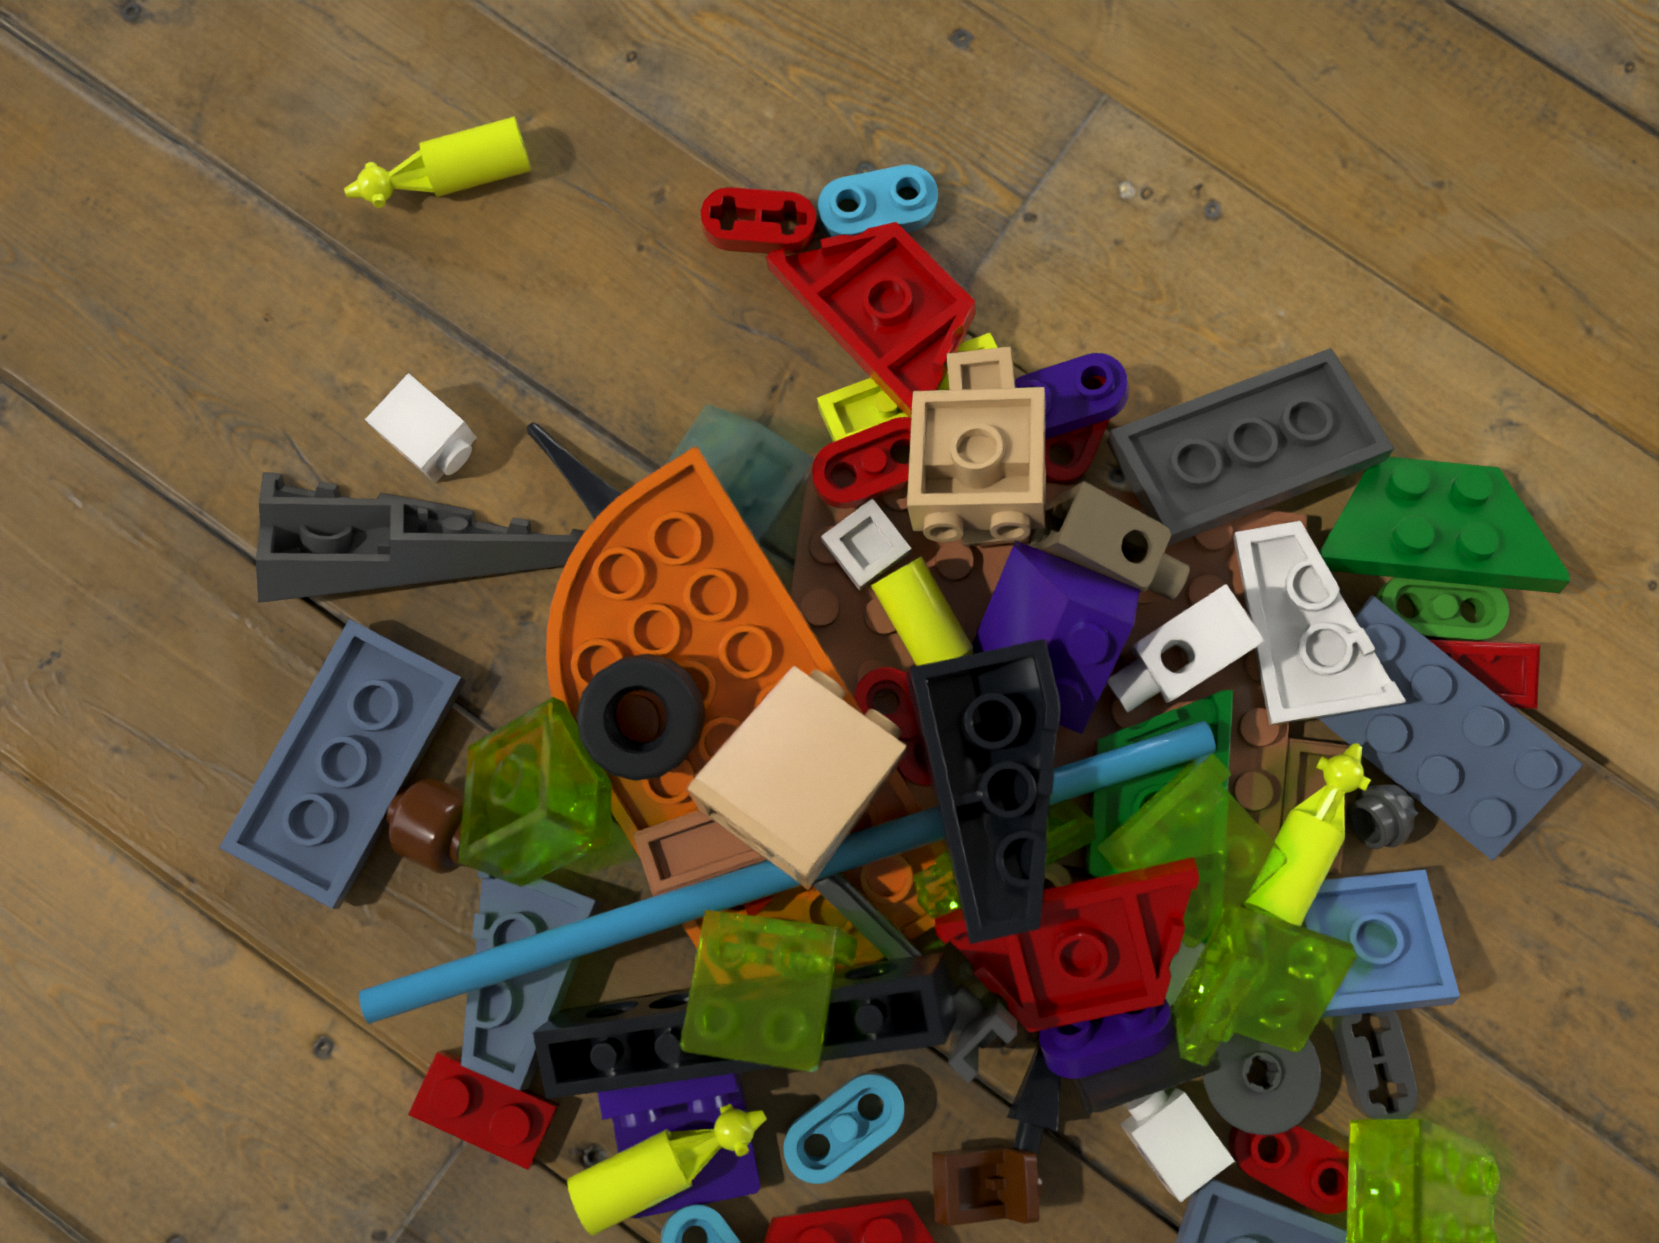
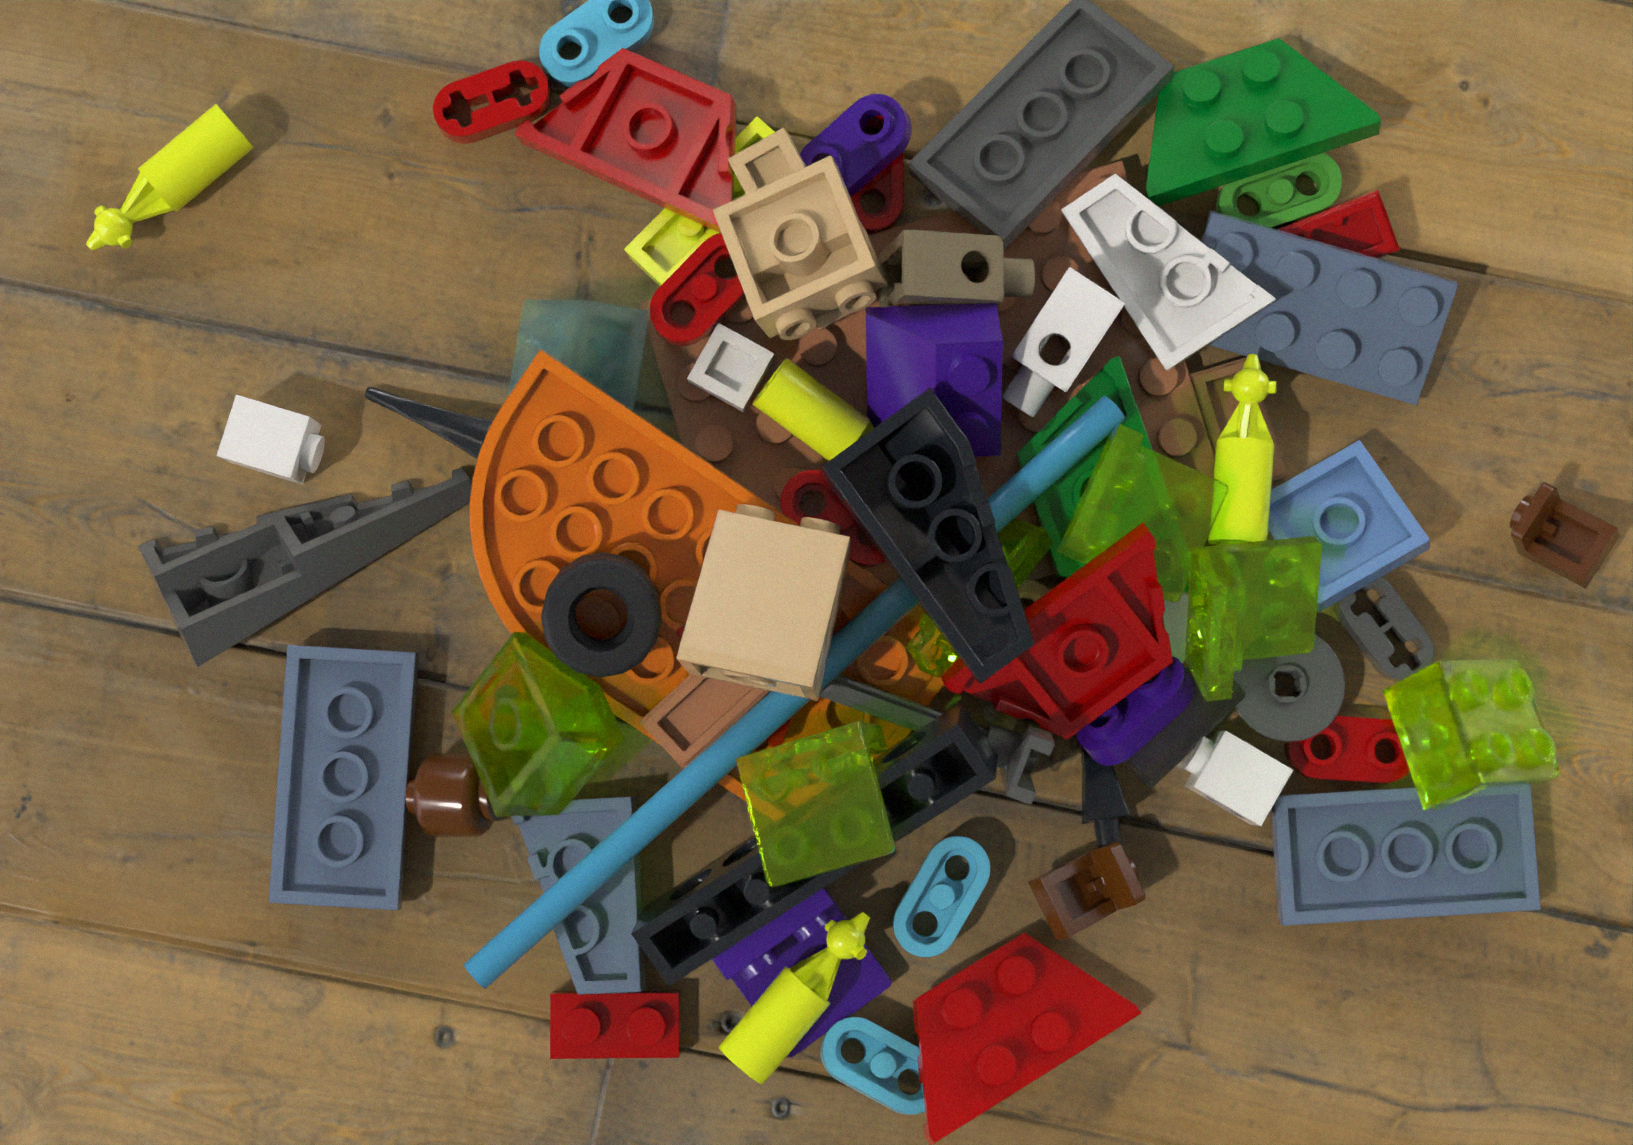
camera: 25 degrees left, 5 degrees up
(1382, 816) = (1302, 408): dark grey plate -> none
(1584, 1048) = (1561, 535): none -> reddish brown bracket

